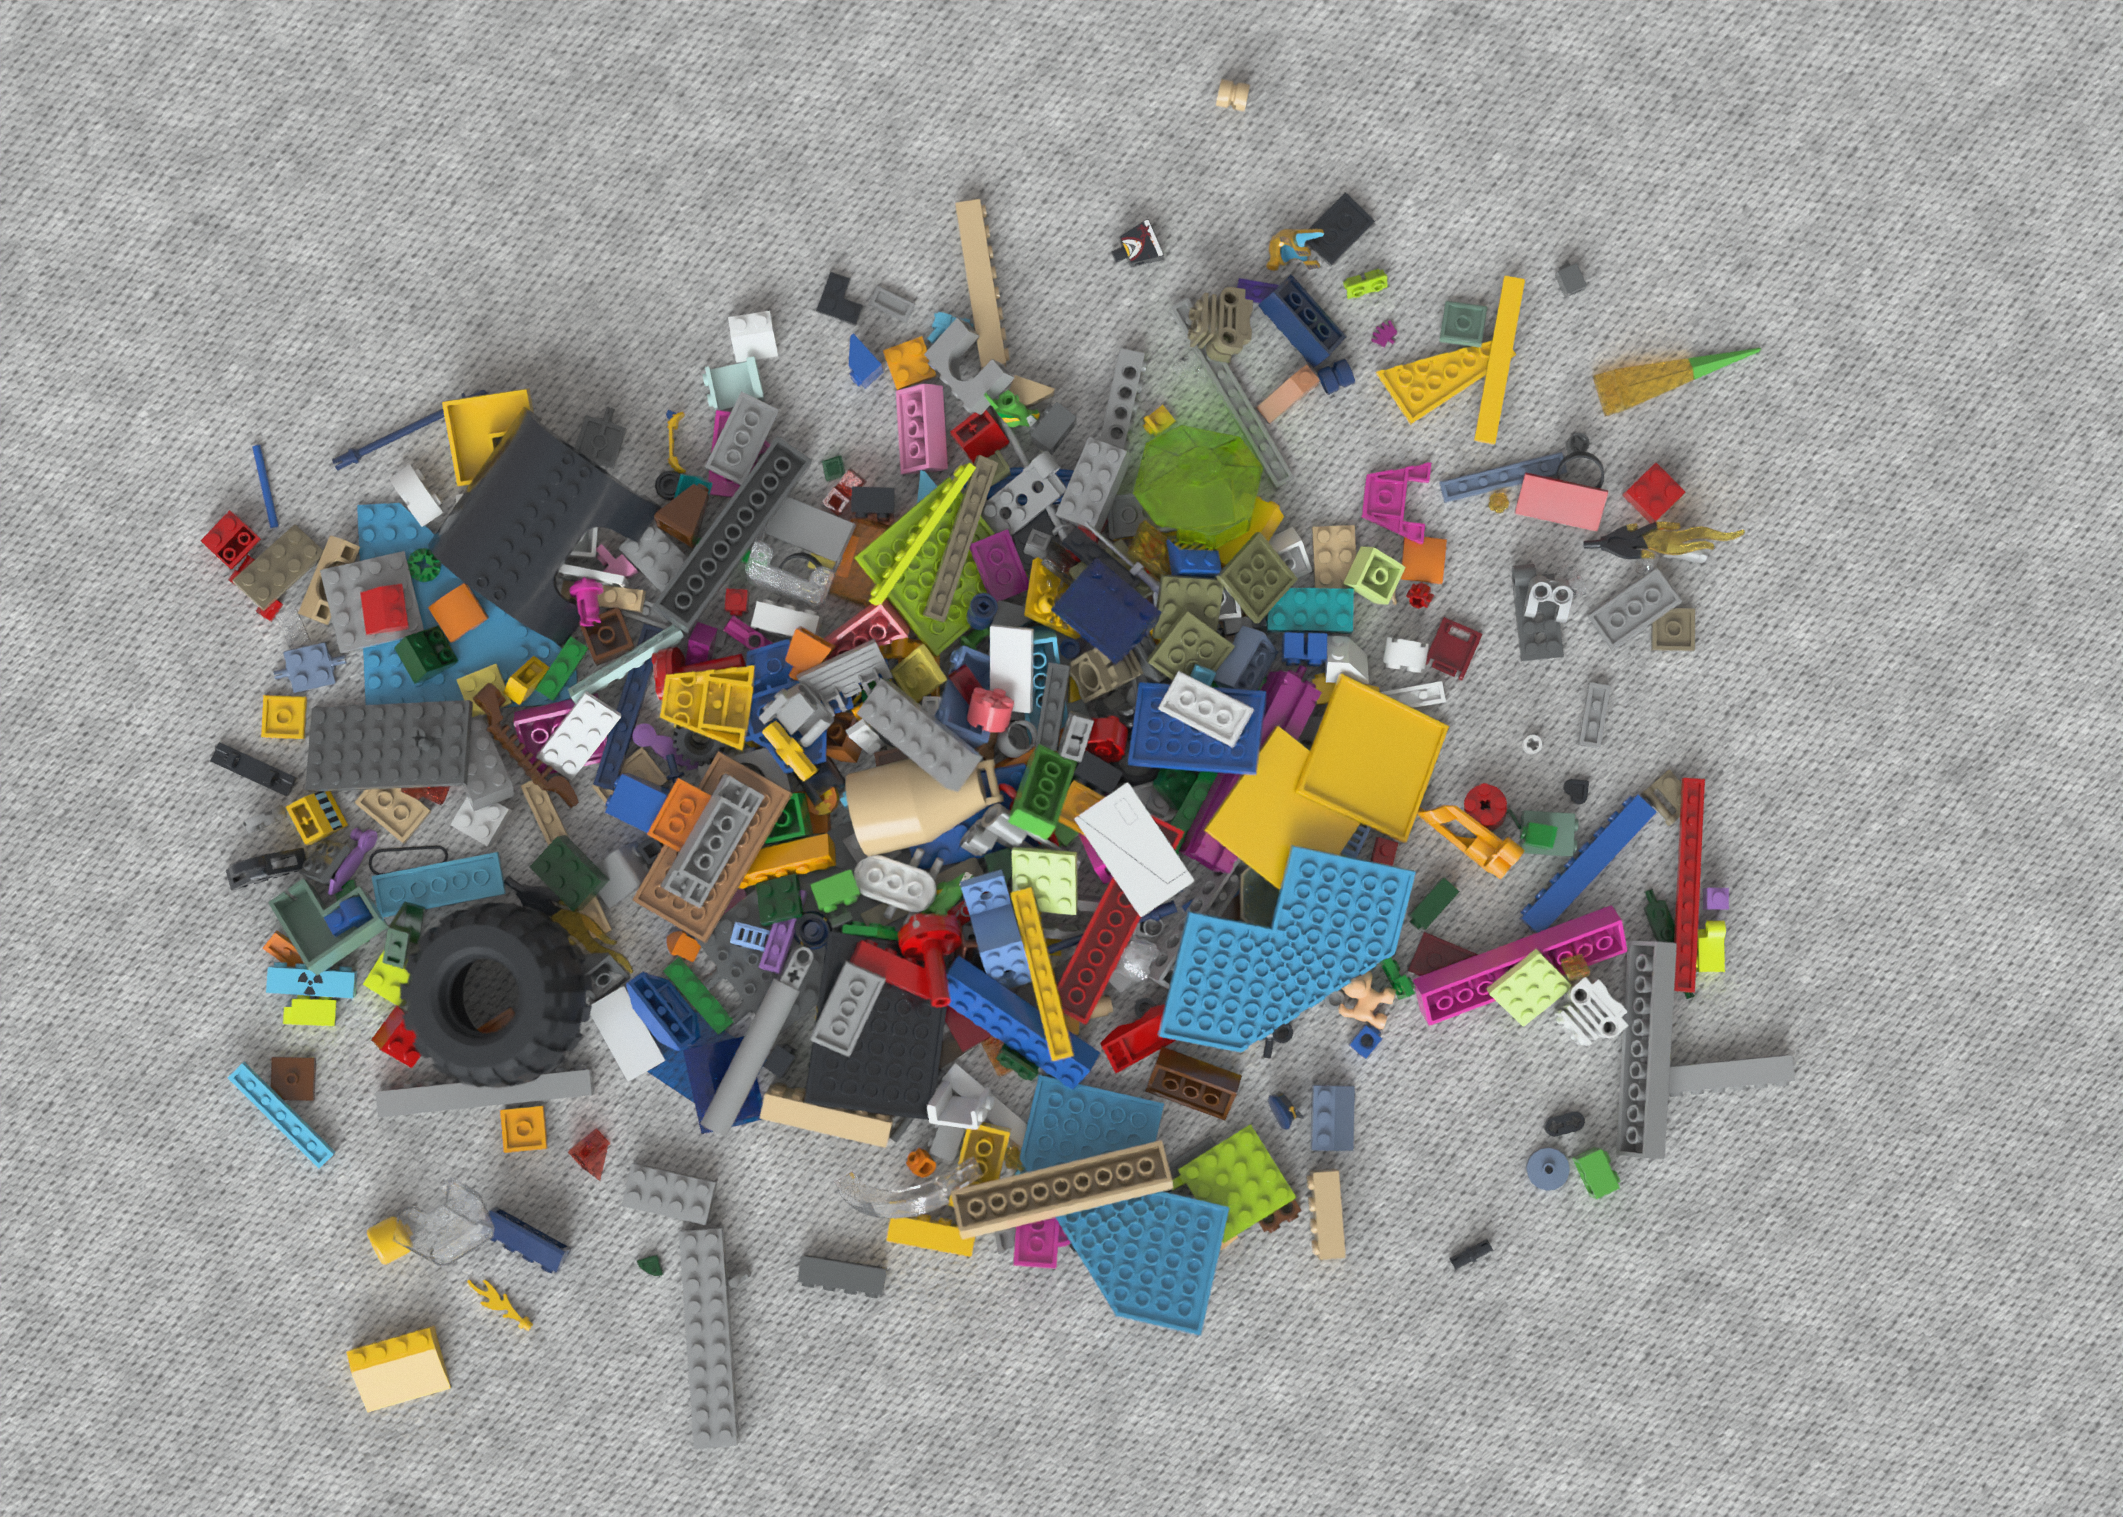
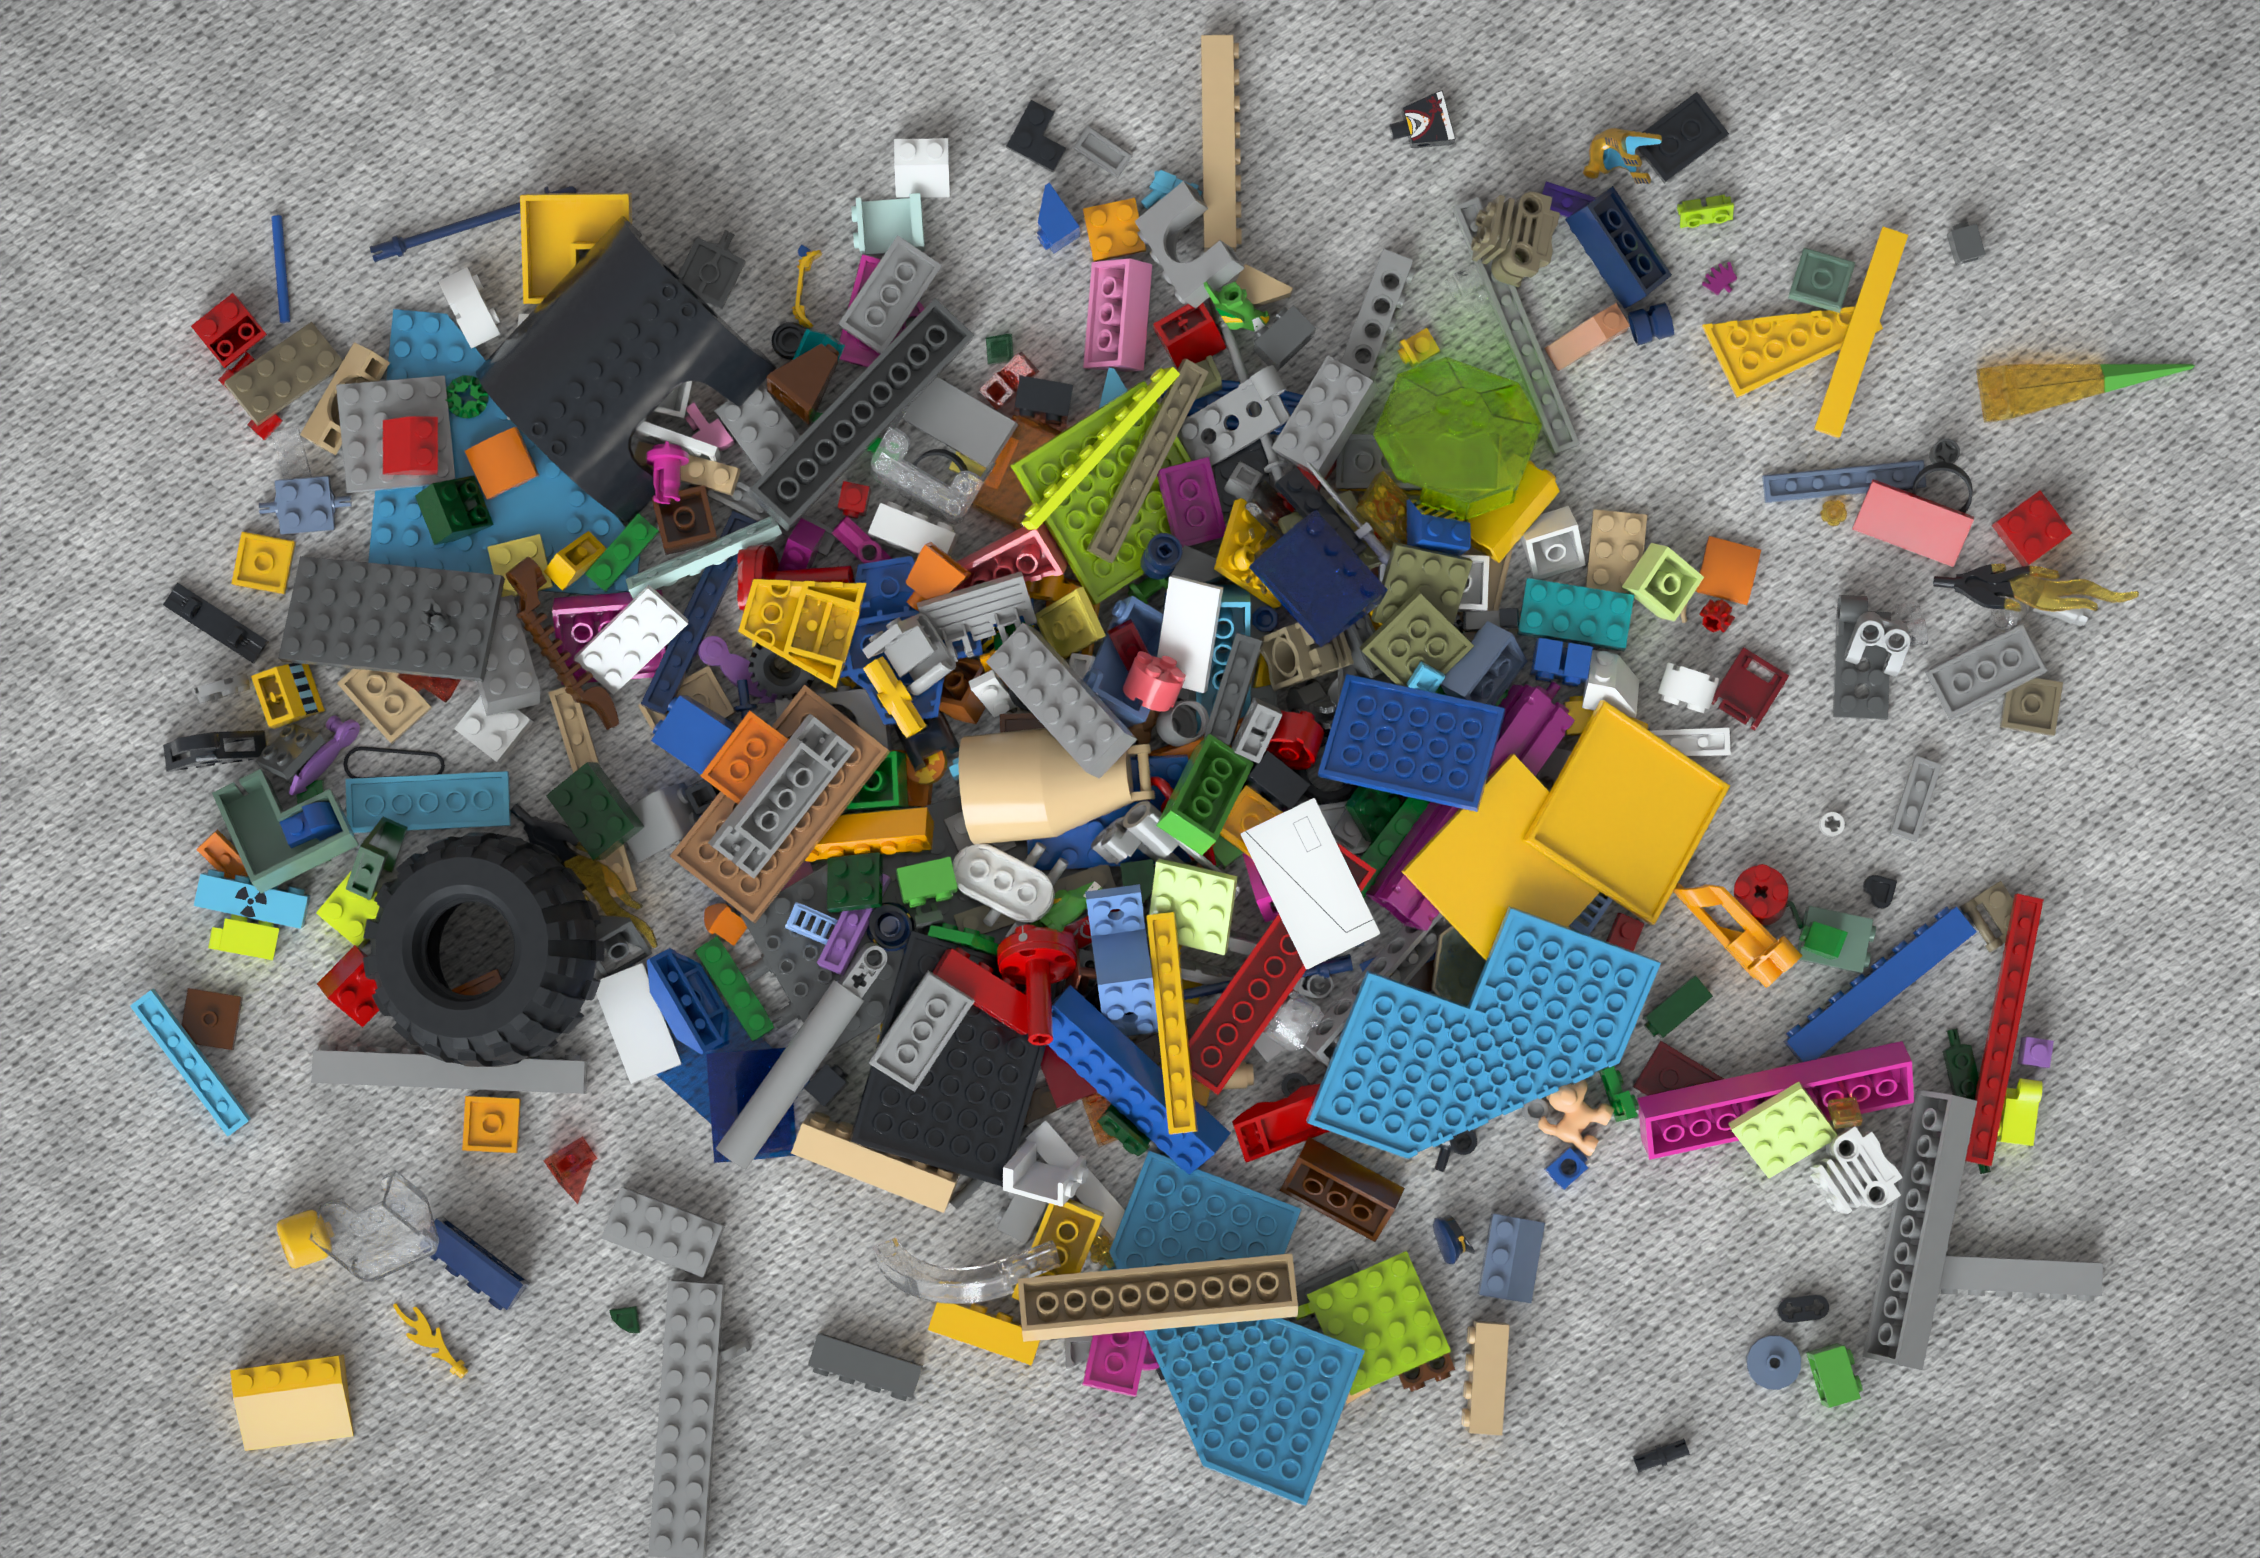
camera: 10 degrees right, 0 degrees up
(921, 1163) = (984, 1239): orange plate -> none
(1205, 709) = (1426, 720): white tile -> none
(1256, 577) = (1514, 563): olive plate -> none
(1386, 498) = (1692, 487): dark pink wing -> none

